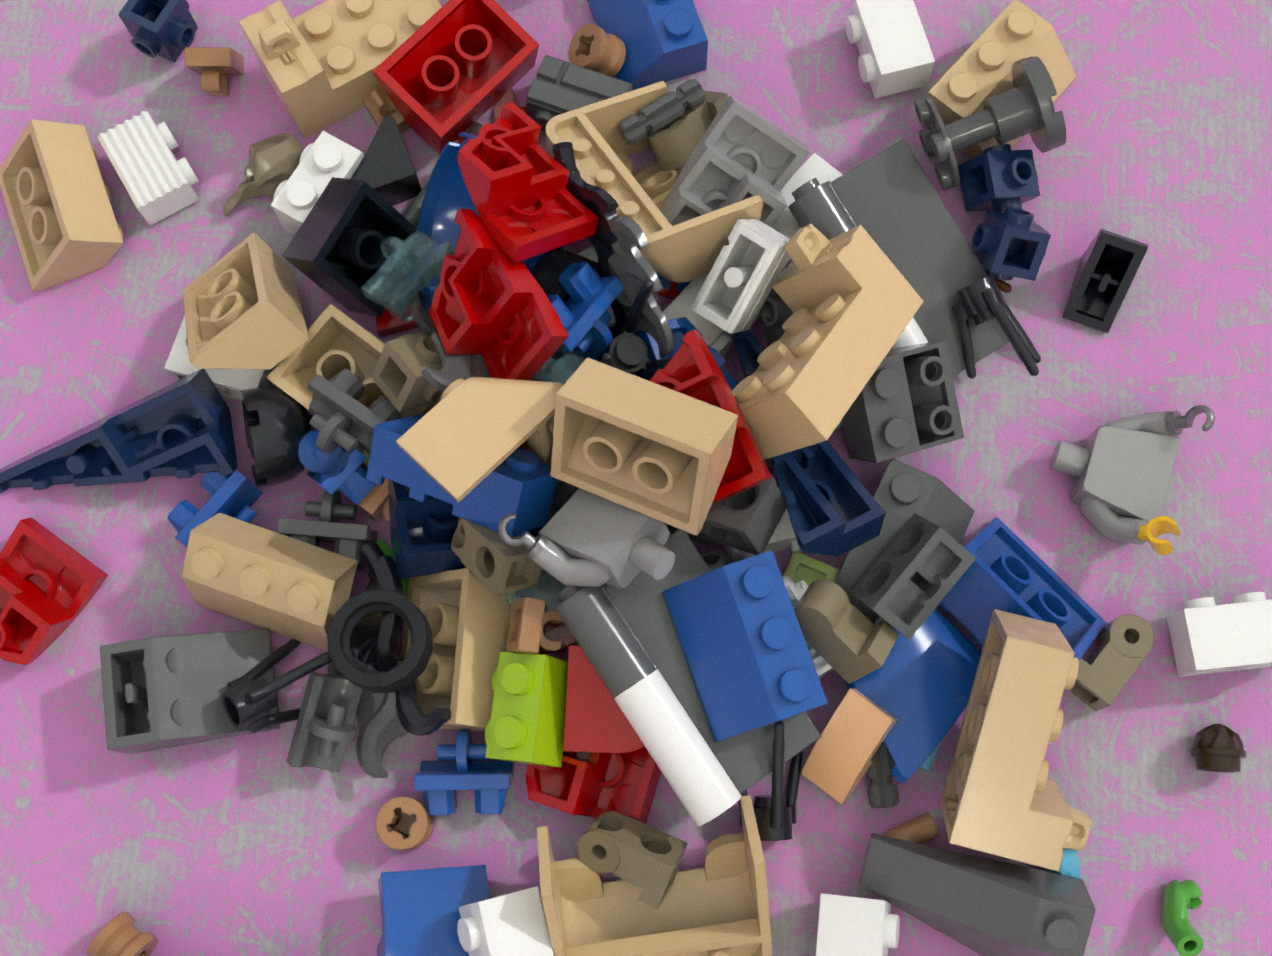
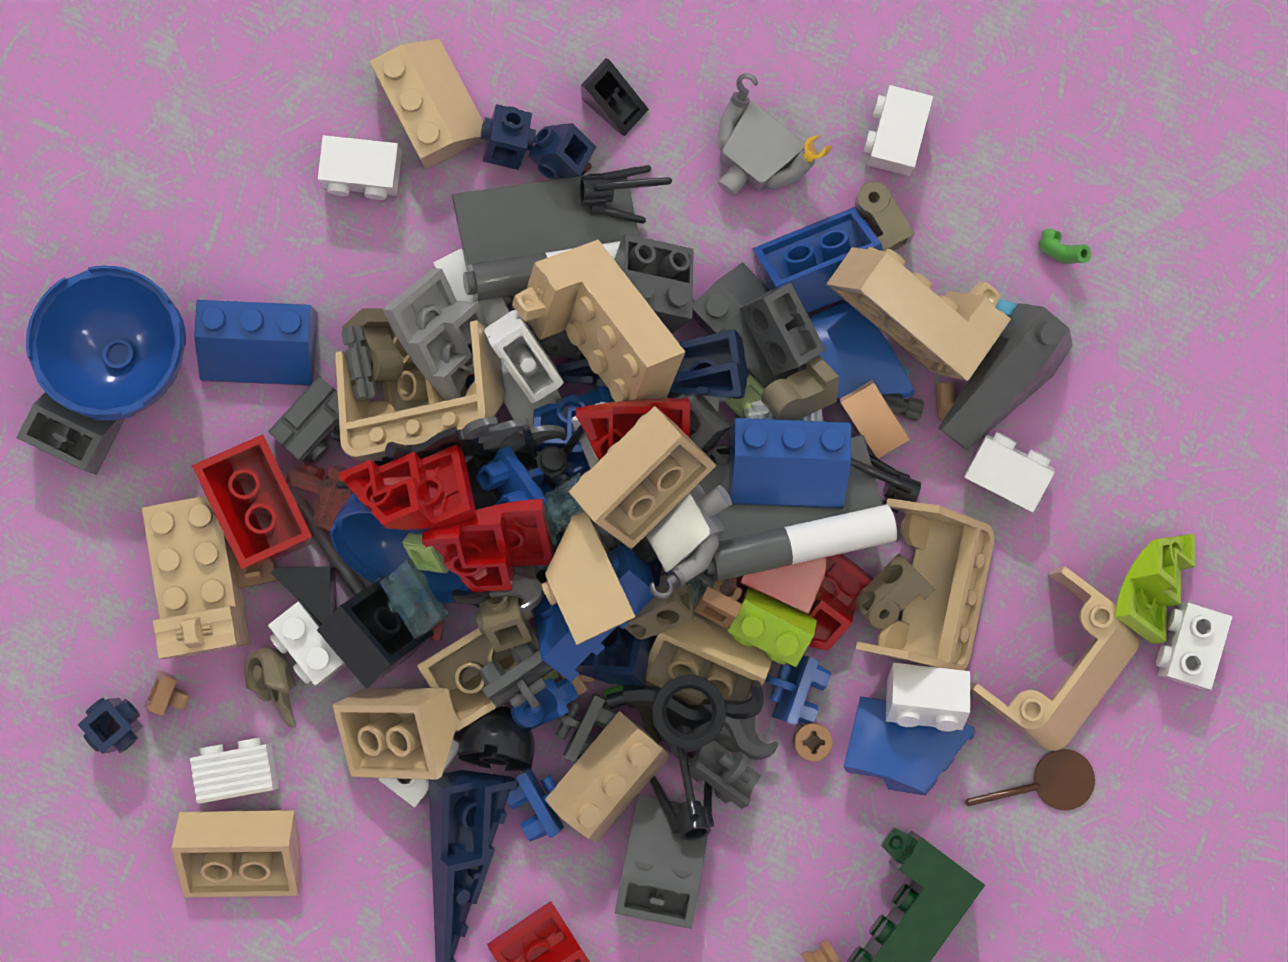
camera: 75 degrees left, 10 degrees up
(597, 50) = (284, 387): medium nougat wheel -> none
(1006, 117) = (467, 111): dark grey piece -> none
(1218, 749) = (967, 174): dark brown plate -> none

